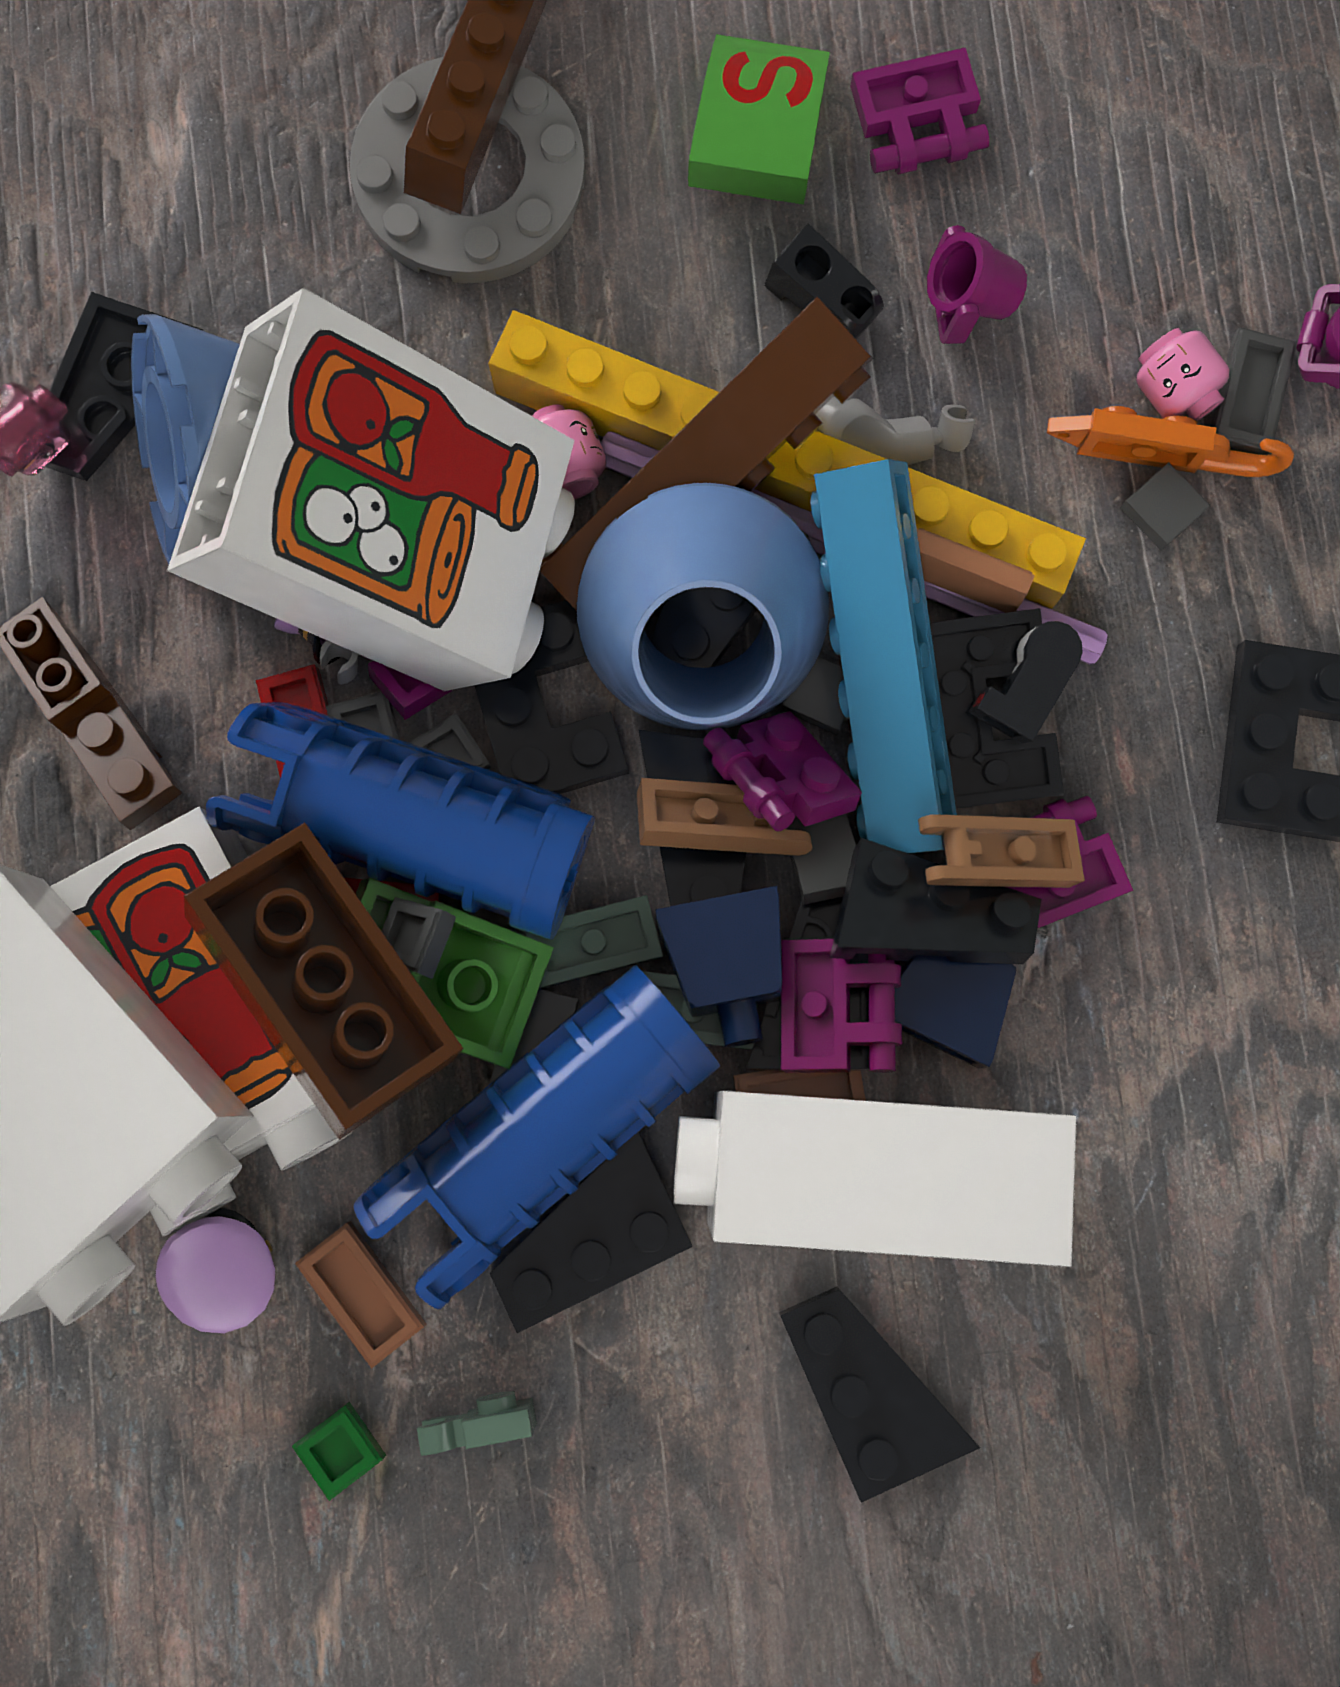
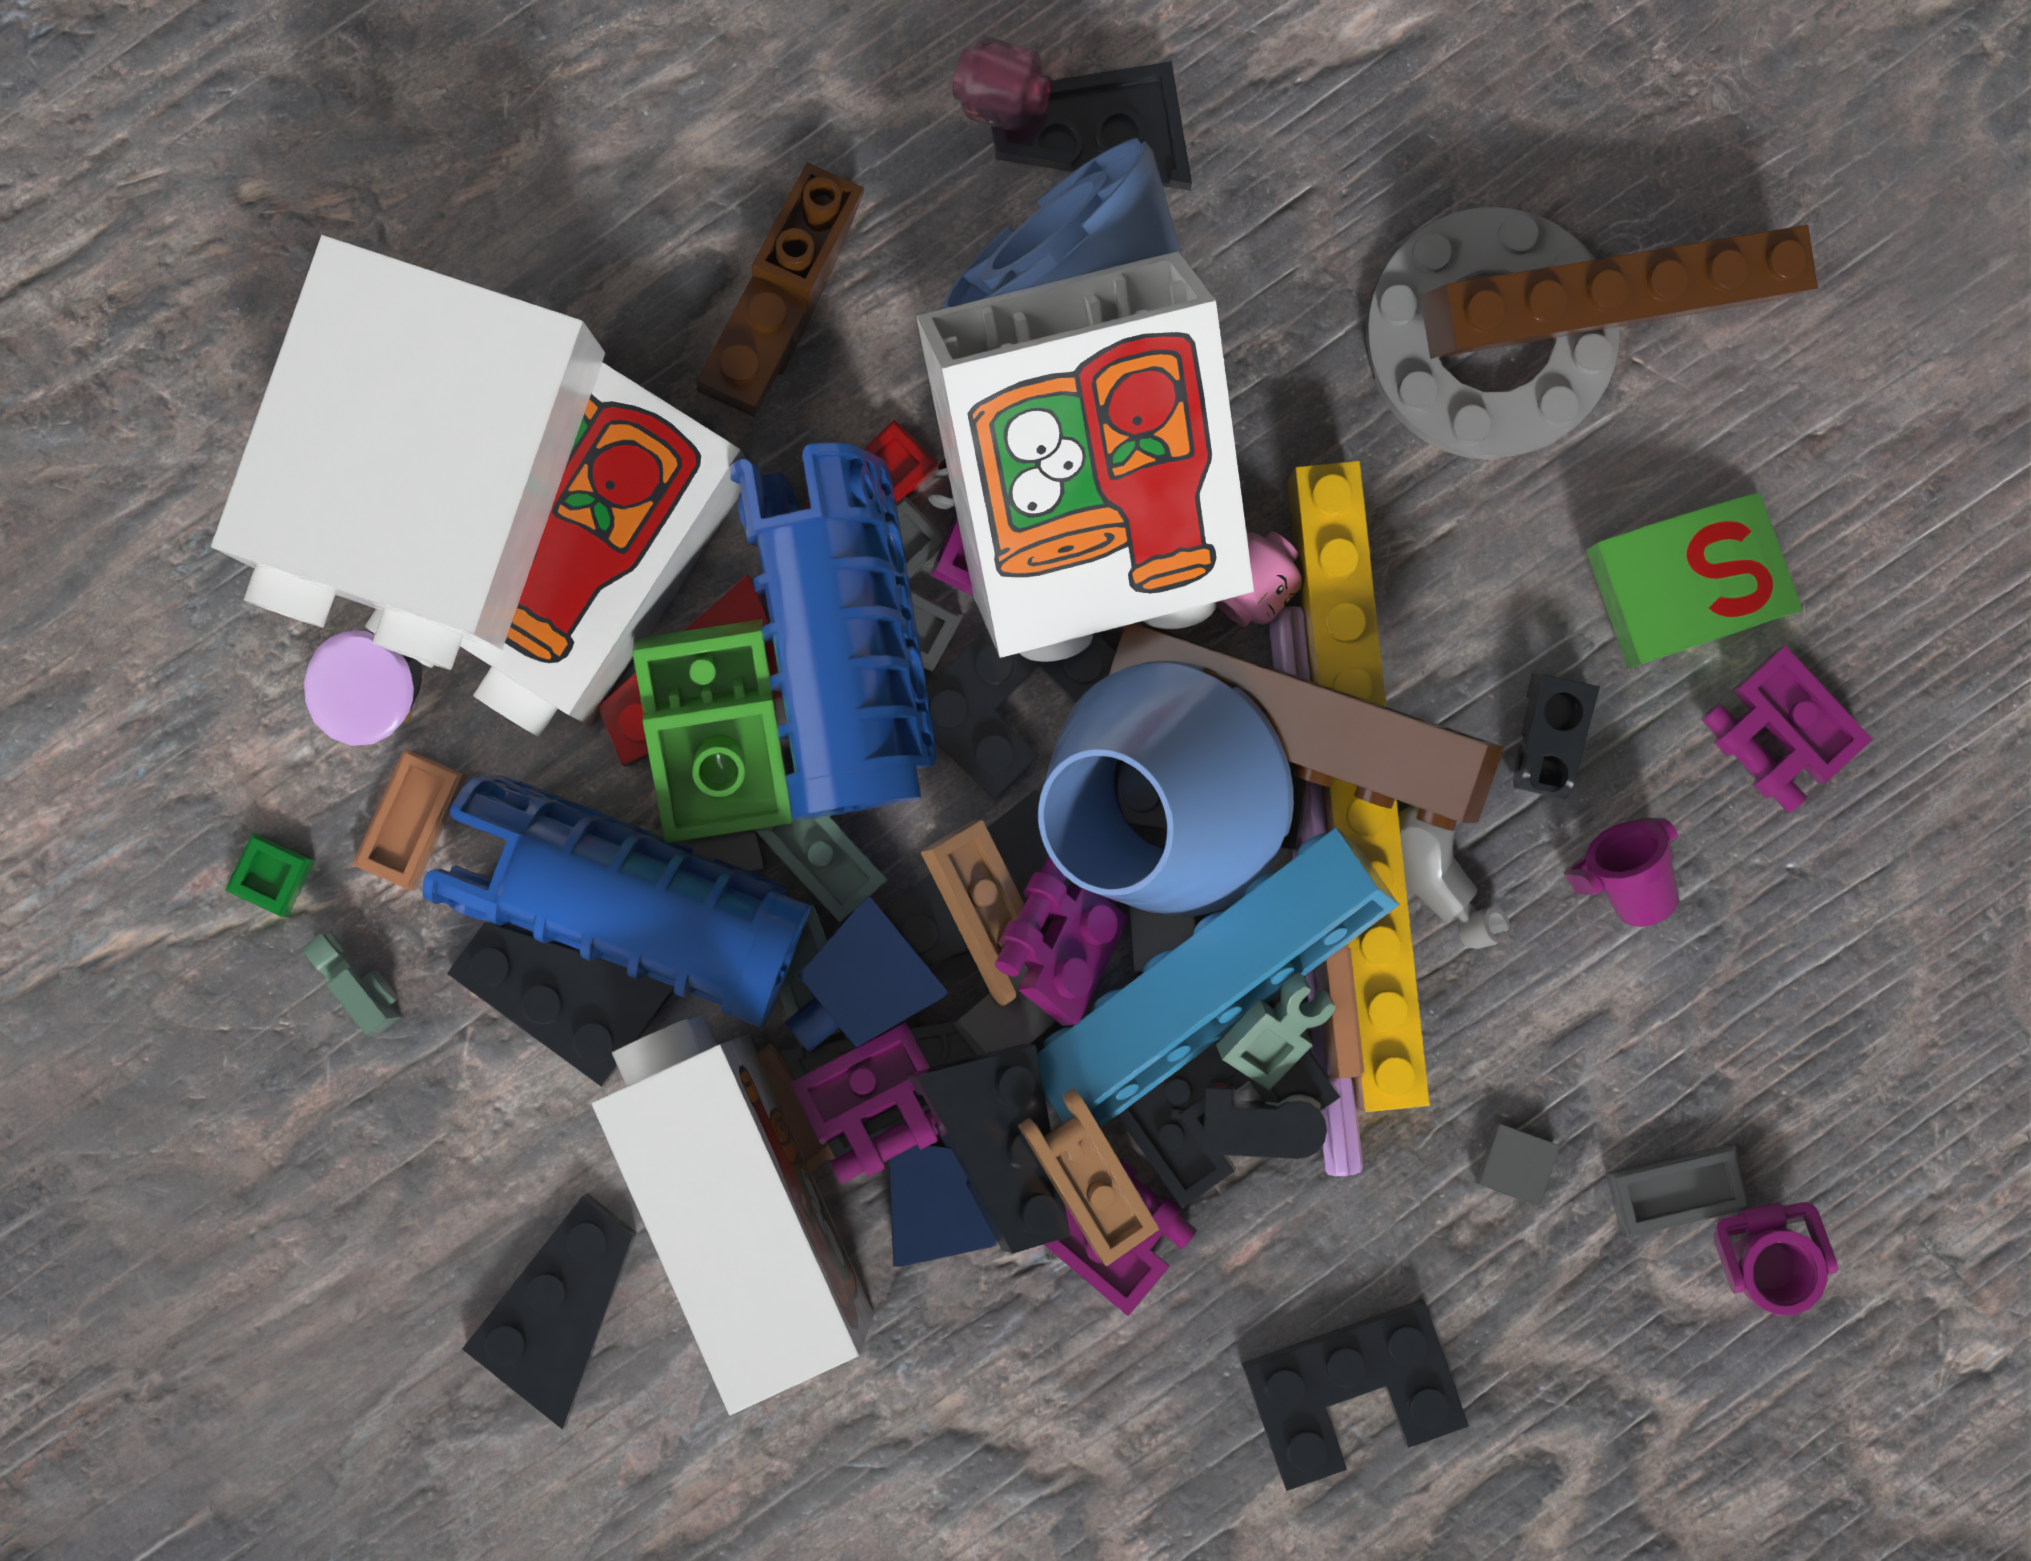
camera: 60 degrees right, 5 degrees up
(321, 979) = (642, 647): reddish brown brick -> none
(418, 934) = (728, 699): dark grey tile -> none
(964, 631) = (1274, 1039): none -> sand green plate
(1137, 439) = (1579, 1137): orange plate -> none
(1182, 375) = (1650, 1116): bright pink head -> none

